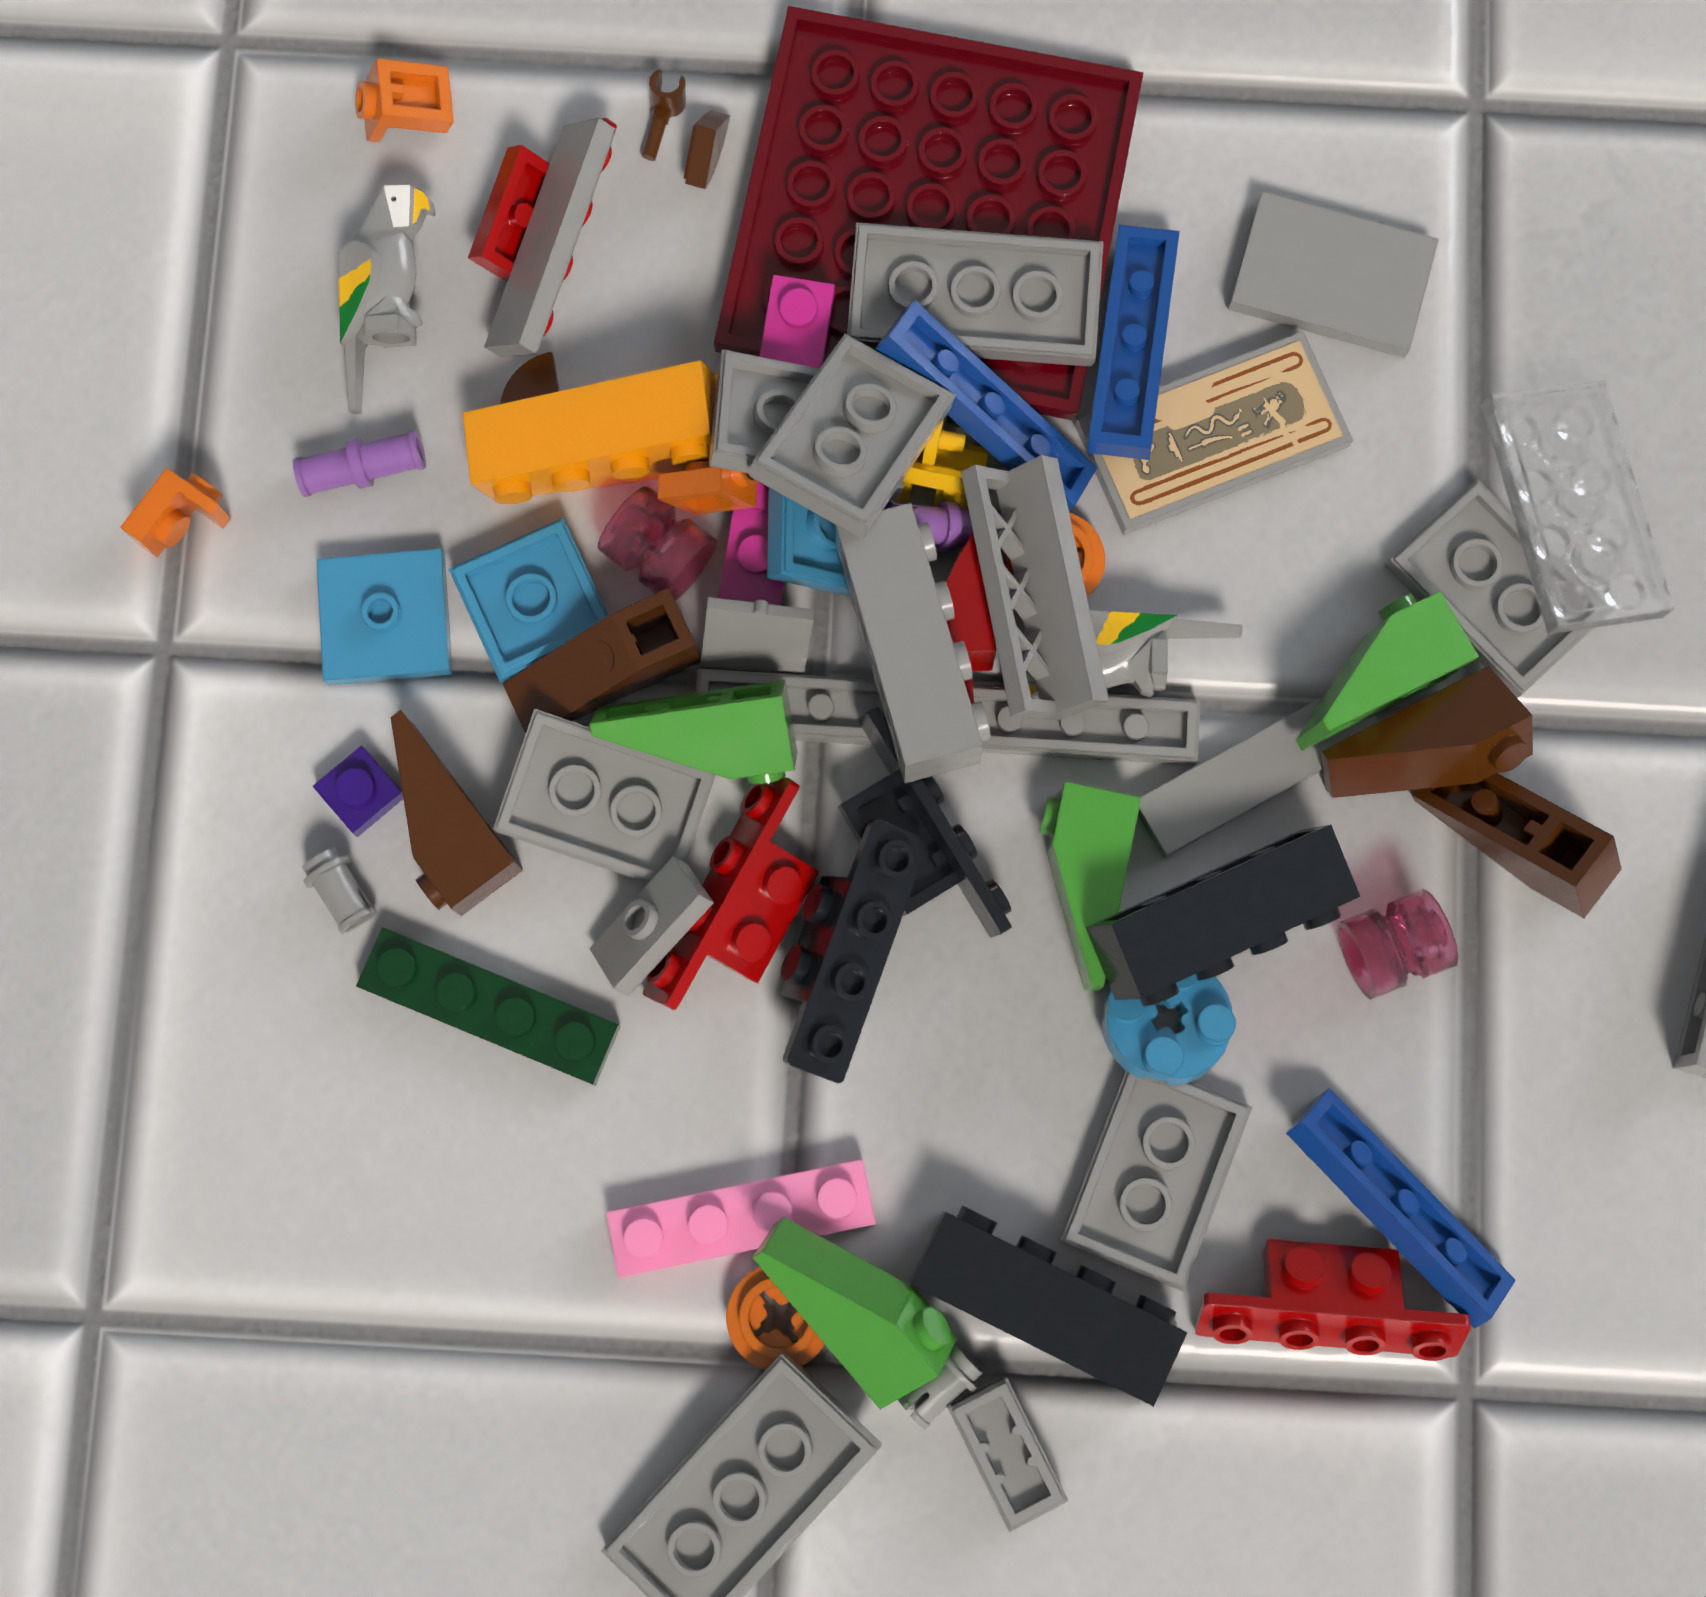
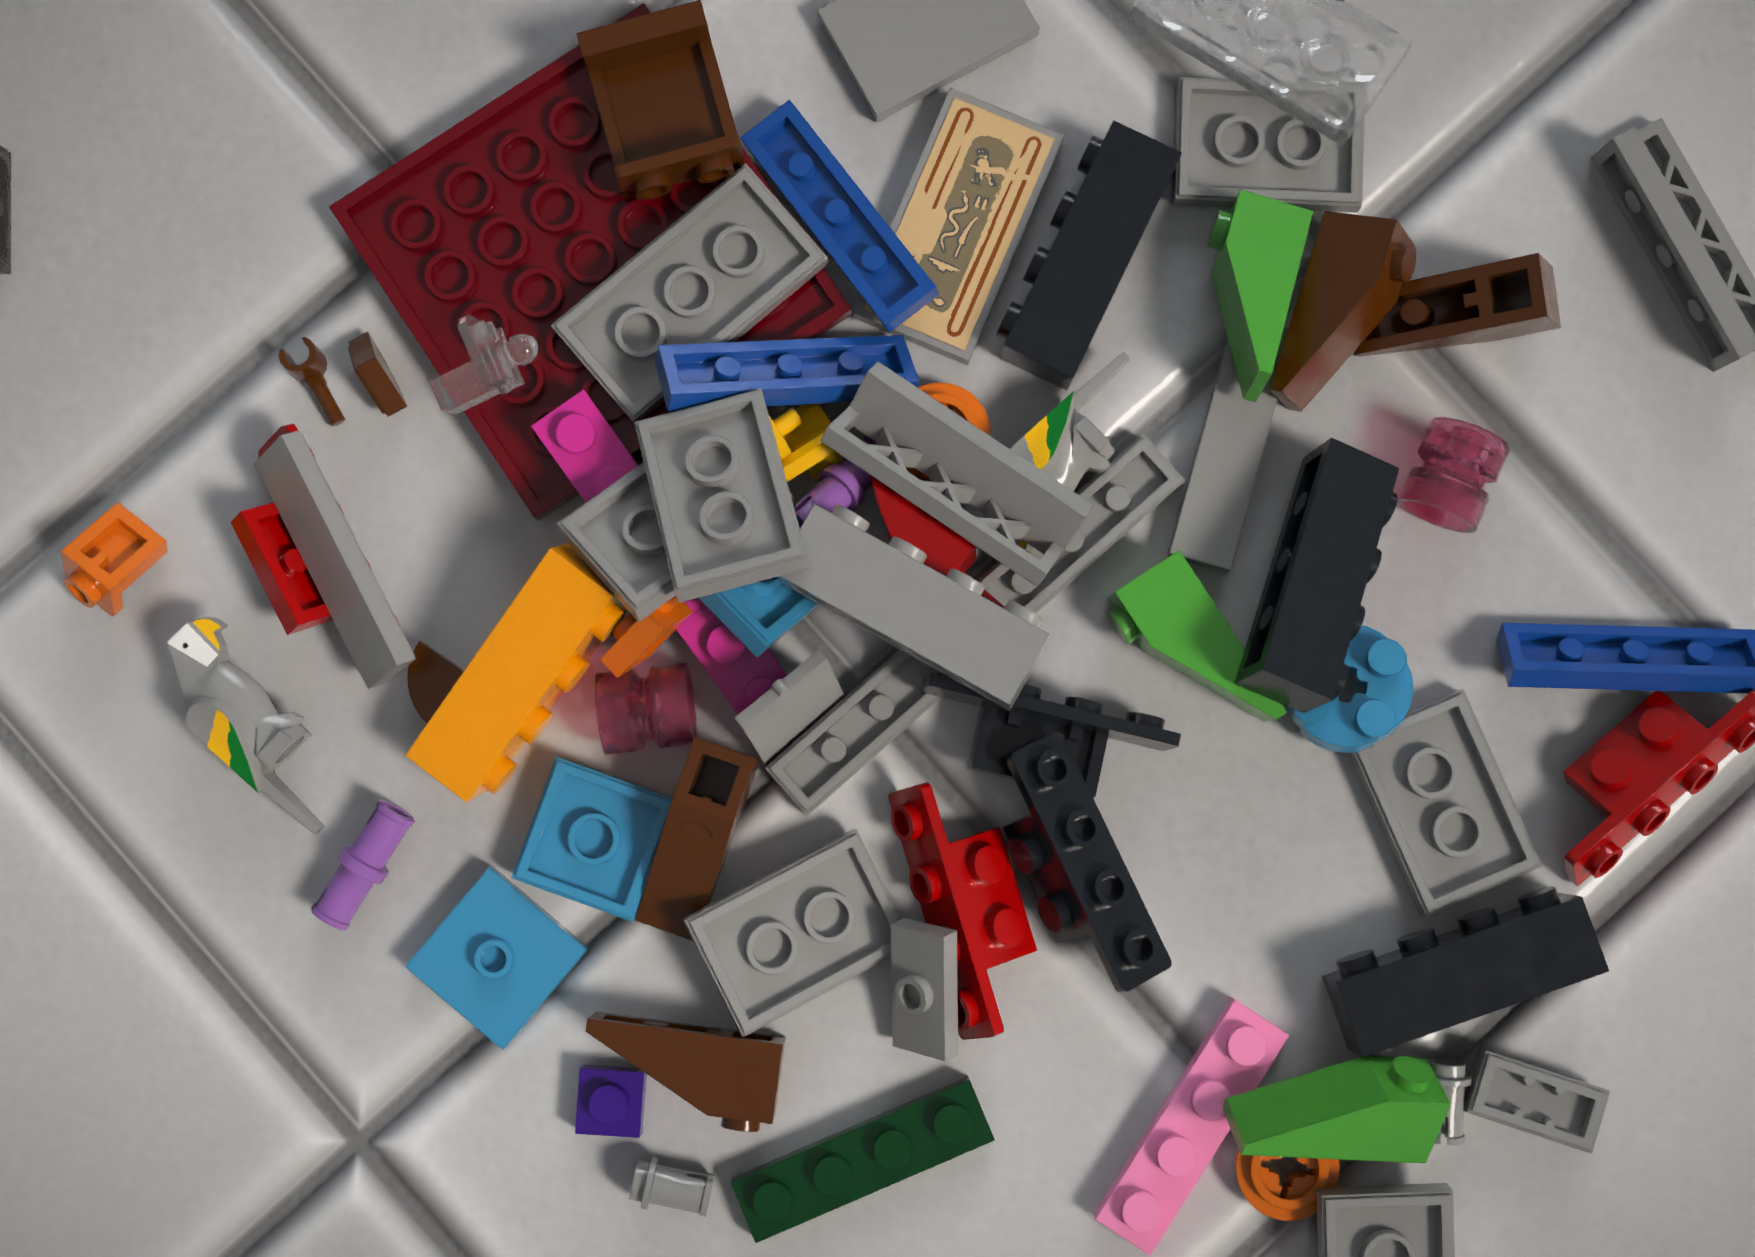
camera: 45 degrees left, 5 degrees up
(166, 509) = (256, 1047): orange bracket -> none
(717, 731) = (828, 805): bright green slope -> none
(784, 211) = (491, 367): none -> clear piece
(1088, 145) = (662, 100): none -> reddish brown panel
(1285, 537) = (1089, 254): none -> black brick

